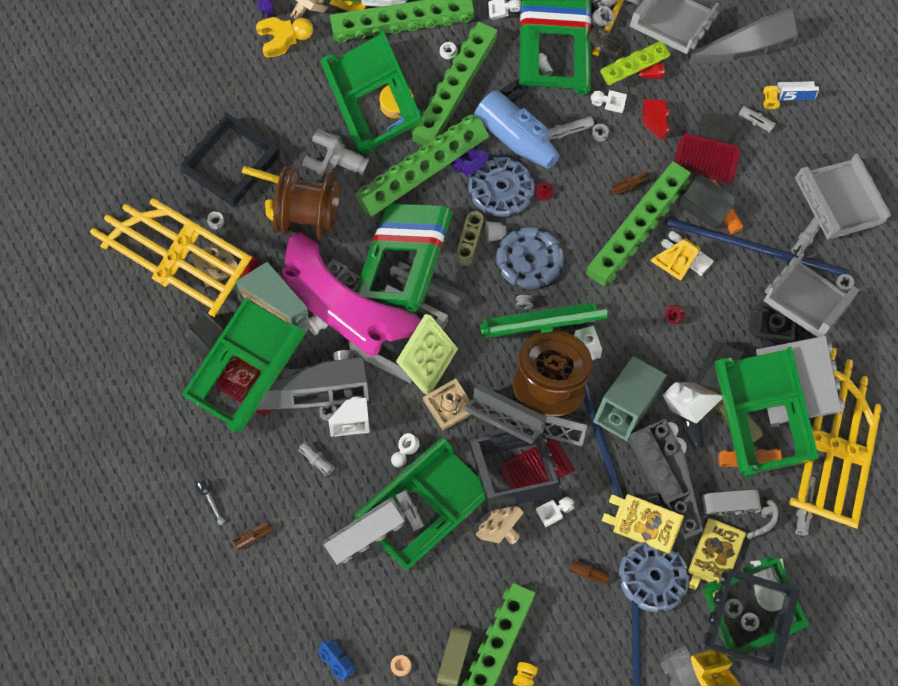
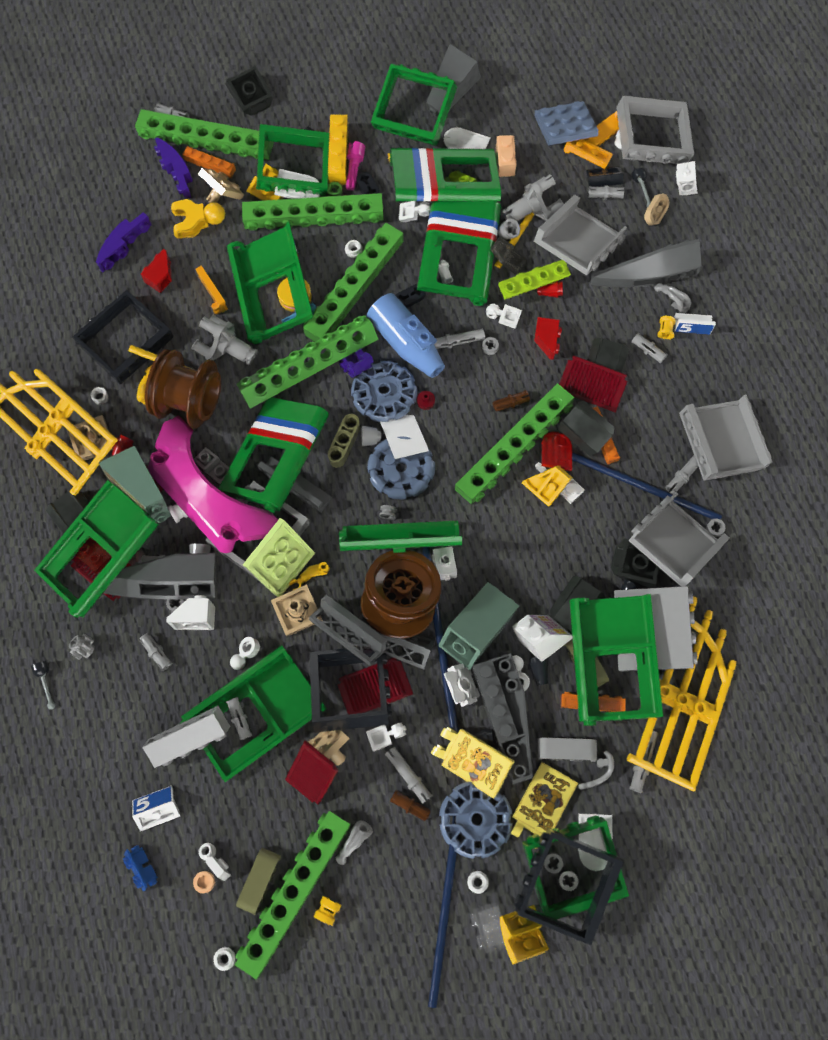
camera: 10 degrees right, 5 degrees up
(207, 68) = (116, 243): none -> dark purple slope
(243, 461) = (81, 646): none -> light grey gear
(252, 535) = (77, 725): reddish brown axle -> none
(254, 94) = (158, 272): none -> red slope
(258, 211) = (141, 387): none -> yellow arm
(313, 105) = (219, 304): none -> light orange hinge
(342, 604) = (155, 808): none -> panel
(414, 648) = (219, 866): none -> white plate
(458, 366) = (311, 571): none -> yellow arm
(492, 549) = (311, 773): none -> dark red window
(529, 219) = (406, 427): none -> white sticker
(543, 605) = (358, 834): none -> light grey piece
(589, 550) = (408, 774): none -> light grey pin
(621, 455) = (461, 685): none -> white piece
(664, 627) = (477, 874): none -> white plate
(675, 314) = (537, 542): dark red tile -> none
(681, 225) = (557, 451): none -> red window
(781, 68) = (681, 299): none -> light grey piece

